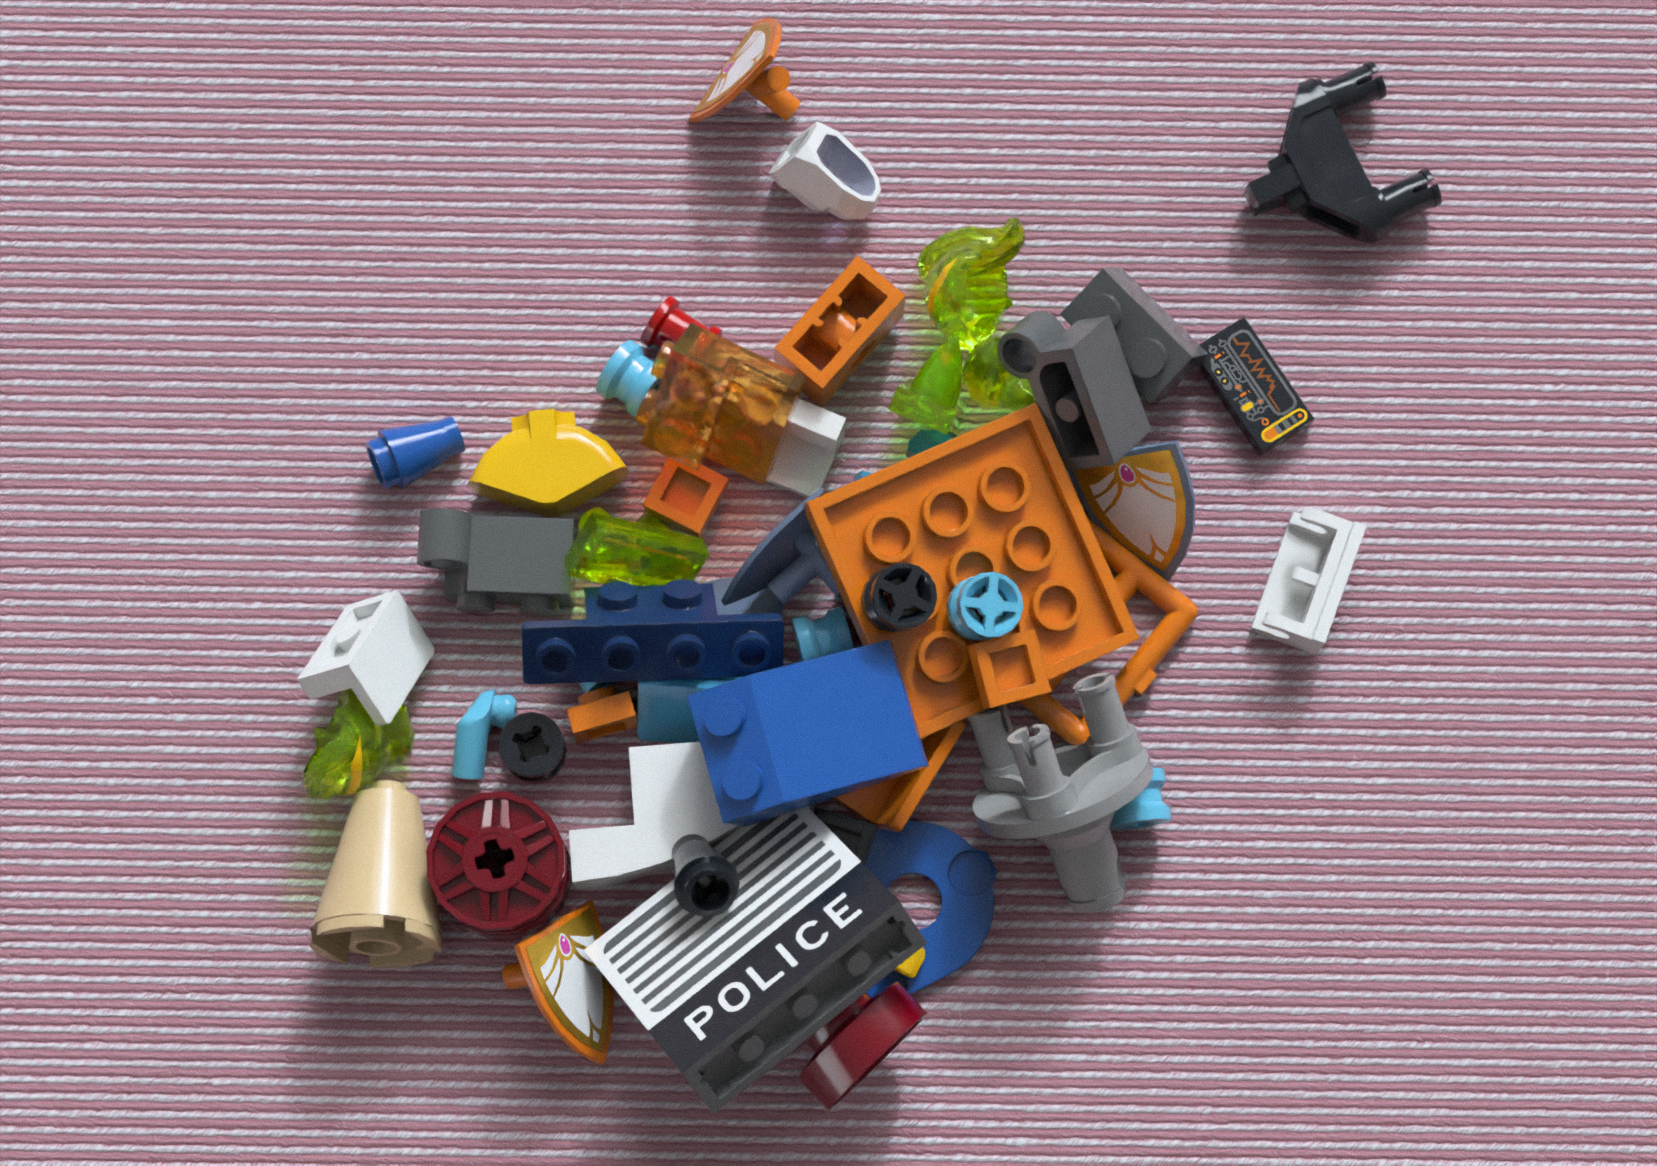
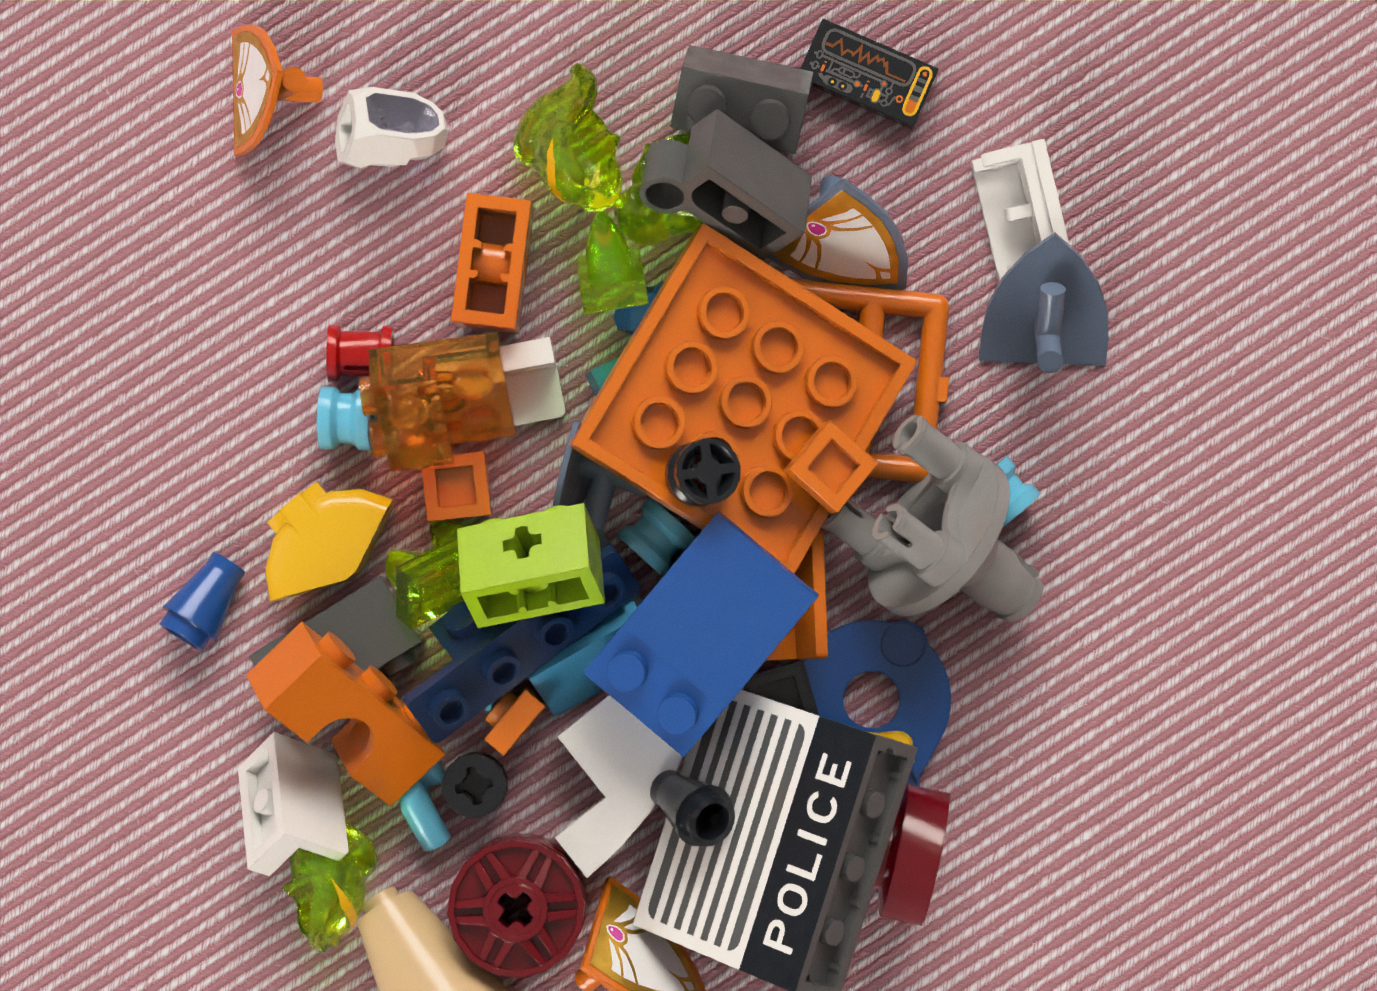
camera: 25 degrees left, 10 degrees up
(459, 559) = (315, 682): none -> orange arch
(703, 581) = (530, 565): none -> lime brick
(999, 606) = (790, 424): medium azure wheel -> none
(1276, 672) = (1047, 311): none -> sand blue shield

